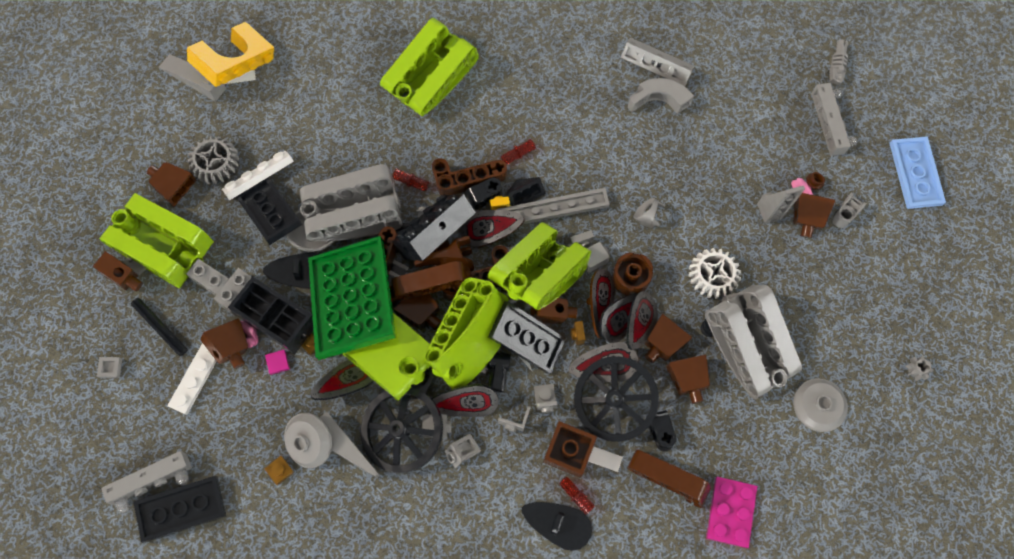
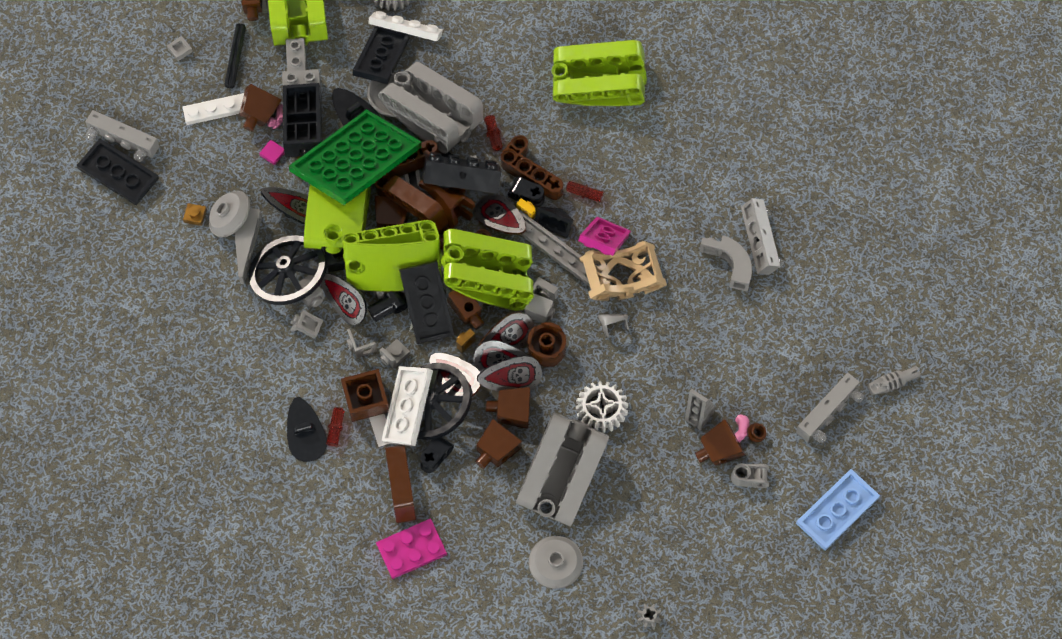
camera: 55 degrees right, 5 degrees down
(575, 164) = (604, 236): none -> dark pink plate
(598, 189) = (602, 289): none -> tan fence
(609, 422) = (407, 406): none -> white tile

